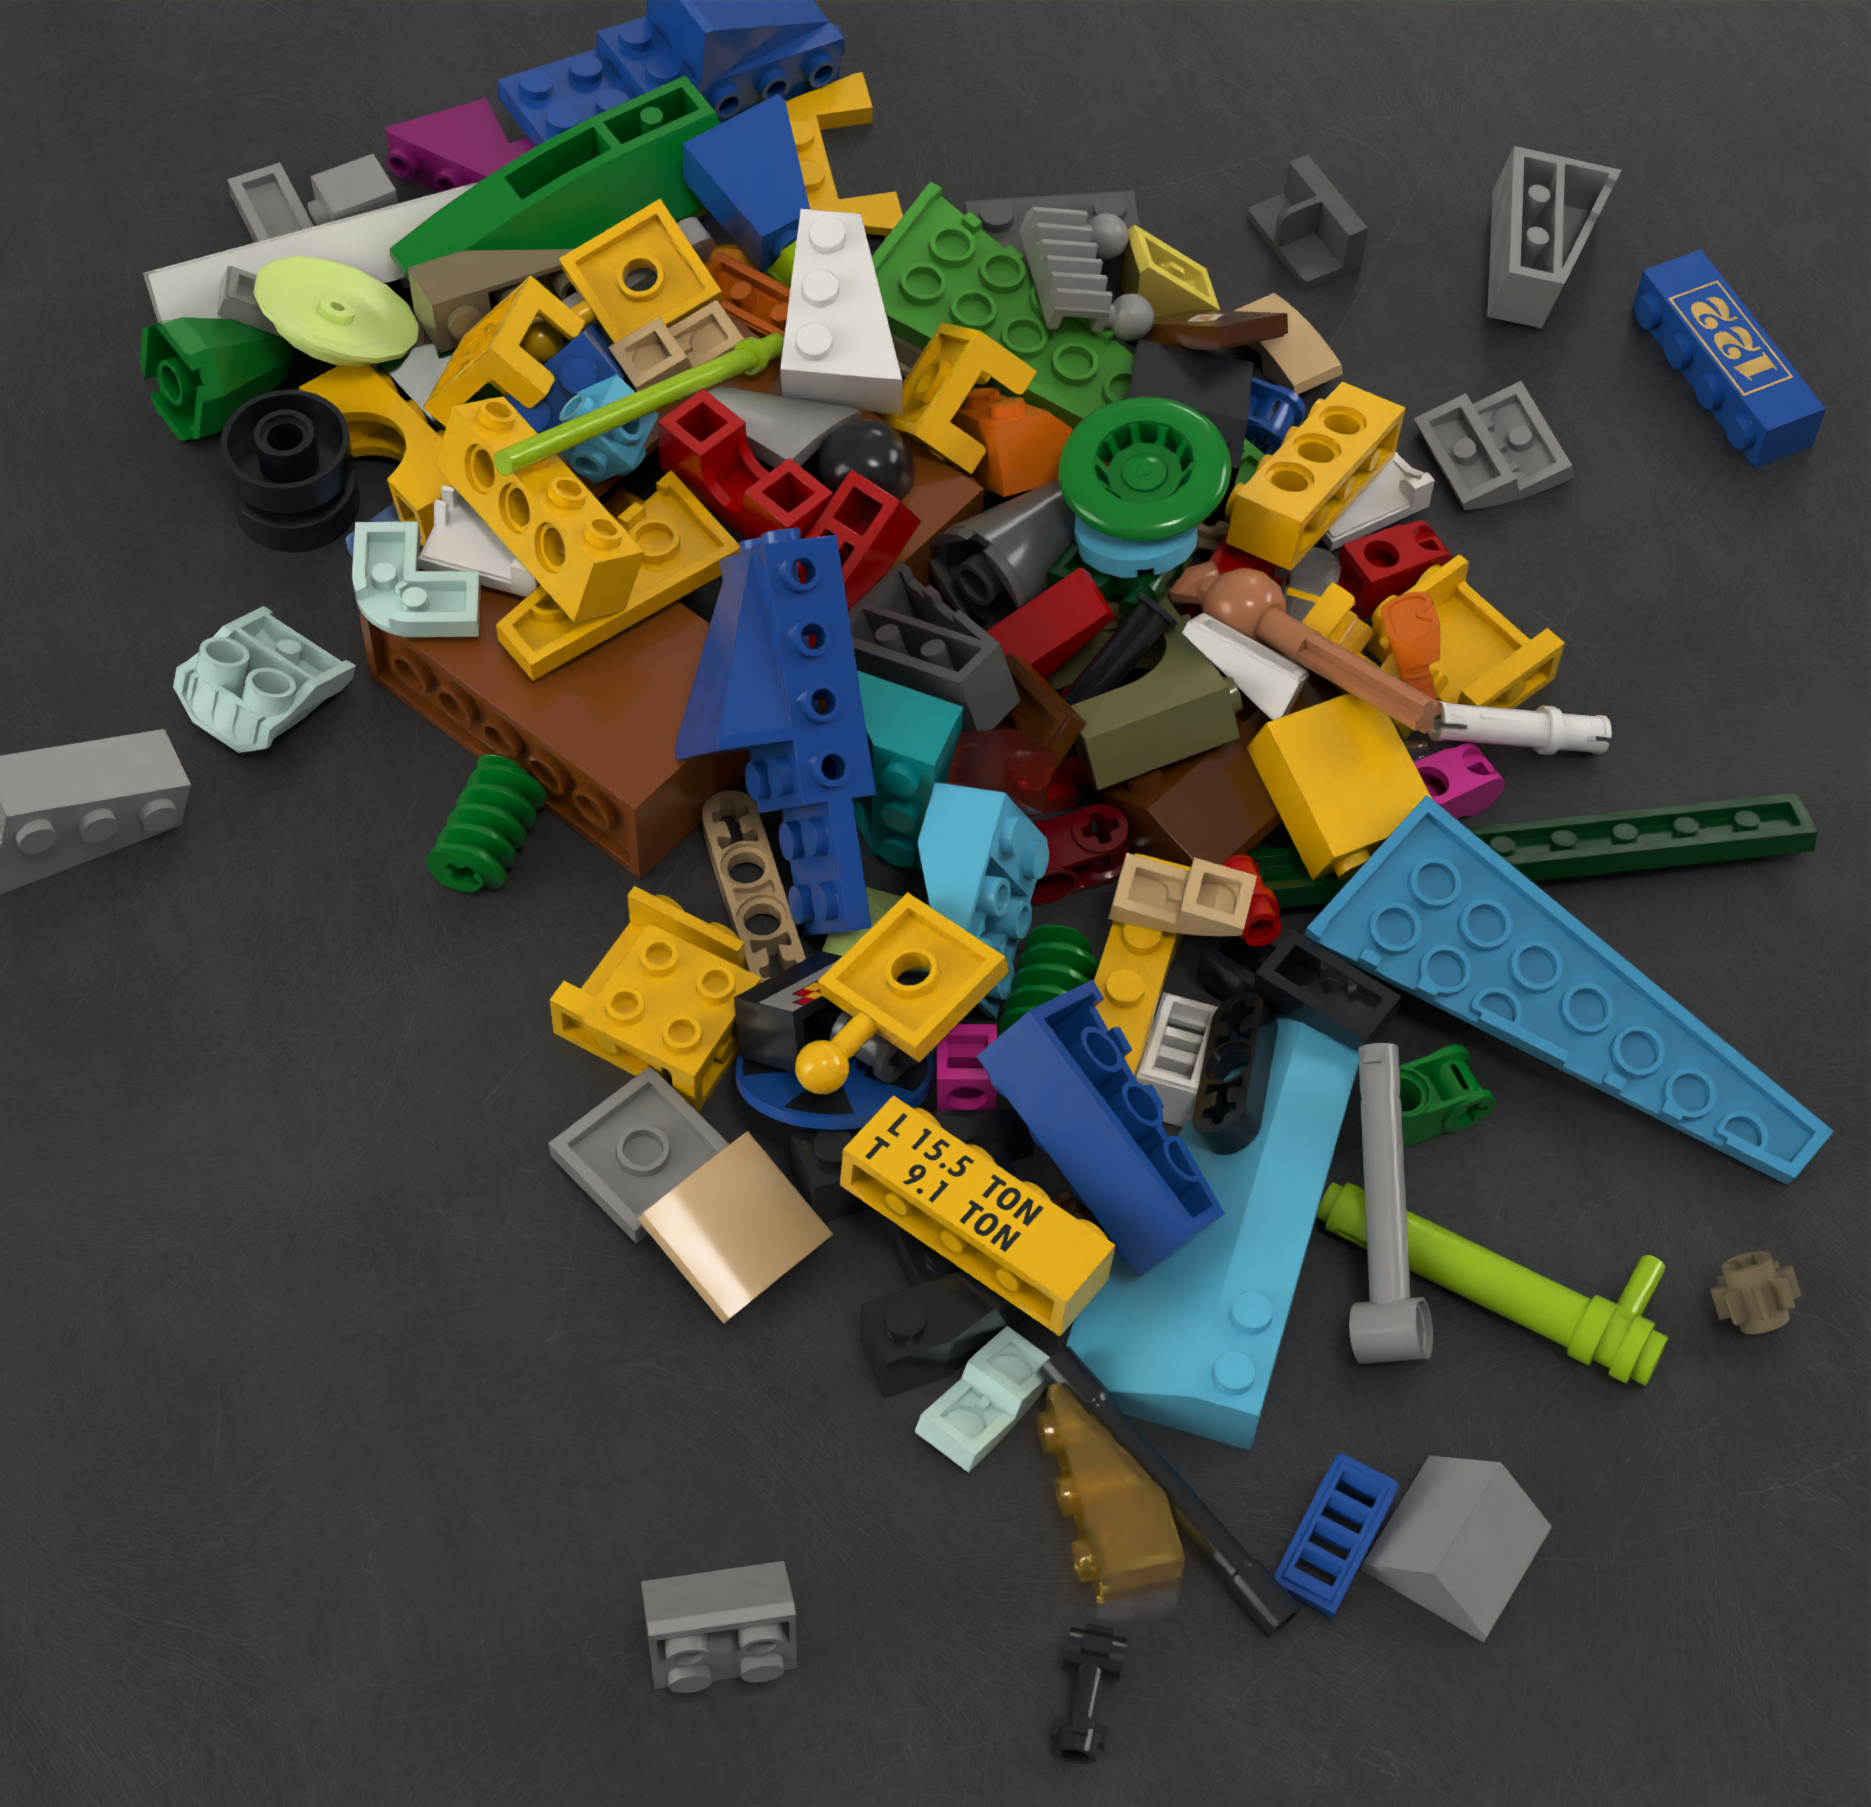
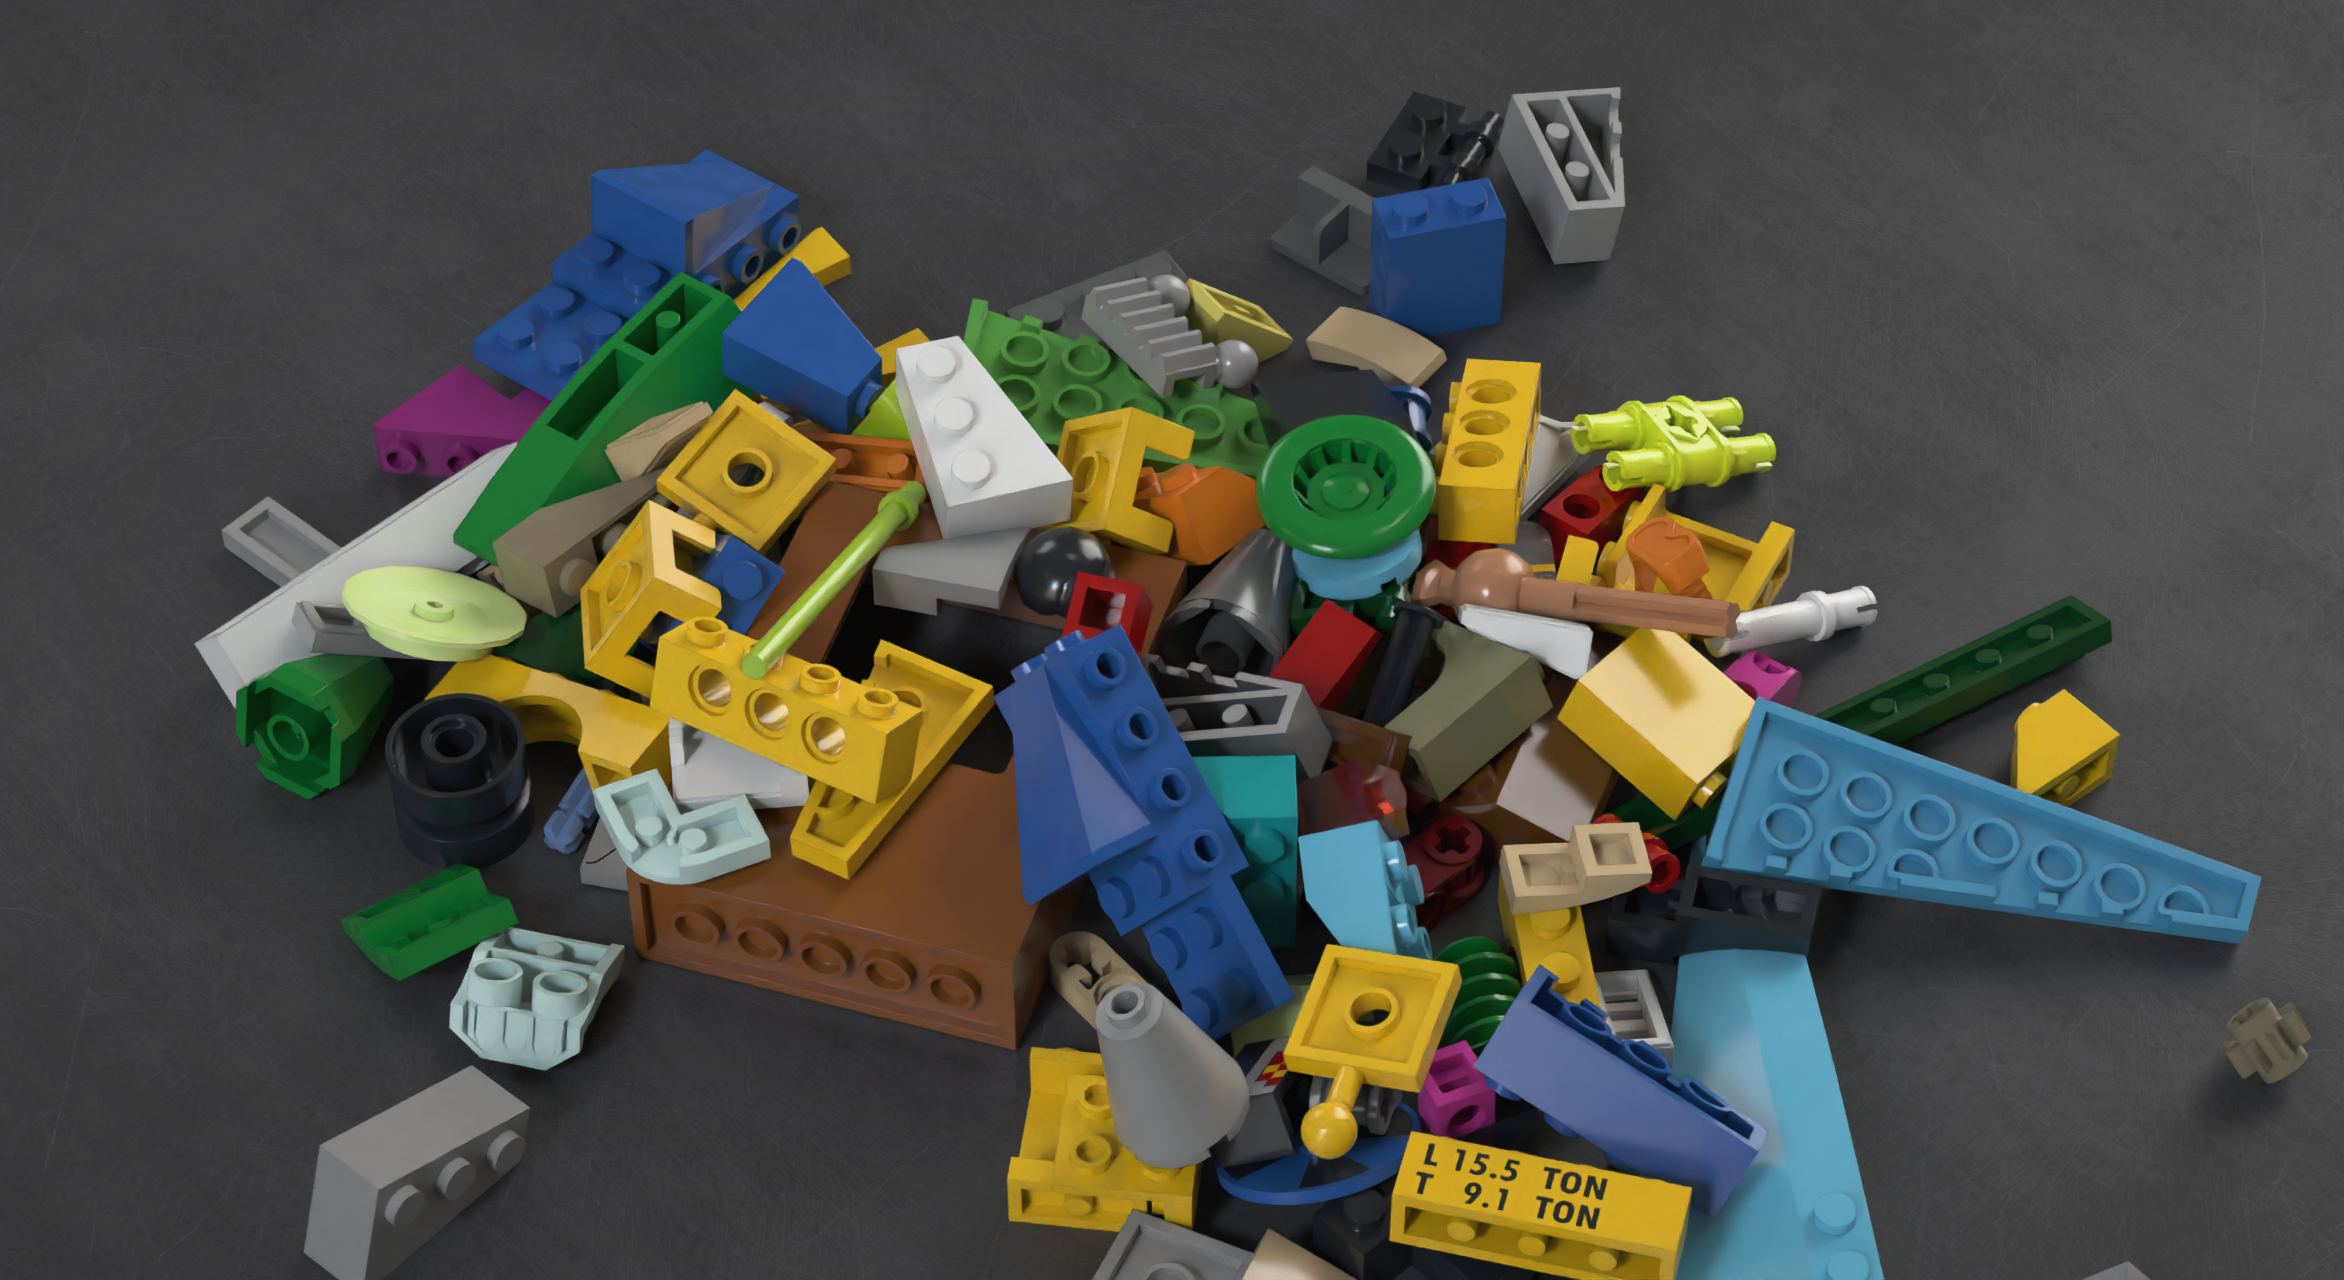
camera: 20 degrees left, 10 degrees down
(208, 586) = (429, 921): none -> green slope
(350, 190) = (366, 498): light grey brick -> none
(486, 826) = (846, 1047): green piece -> none
(582, 222) = (656, 441): none -> tan slope
(614, 451) = (822, 639): medium azure brick -> none
(663, 352) = (813, 536): tan slope -> none
(700, 966) = (1166, 1079): none -> light grey cone
(712, 458) = (915, 608): red arch -> none
(1215, 329) = (1315, 351): reddish brown tile -> none
(1246, 1092) = (1716, 1025): black beam -> none
(1370, 278) = (1438, 258): none -> blue brick
(1391, 1322) = (1956, 1184): light grey piece -> none
(1426, 163) = (1423, 135): none -> black plate
(1441, 1095) = (1879, 983): green piece -> none
(1494, 448) = (1622, 366): light grey slope -> none
(1499, 522) = (1673, 443): none -> neon yellow pin
(1587, 1327) = (2134, 1125): lime cylinder -> none
(1704, 943) = (2061, 750): none -> yellow slope
(1728, 359) = (1801, 230): blue brick -> none

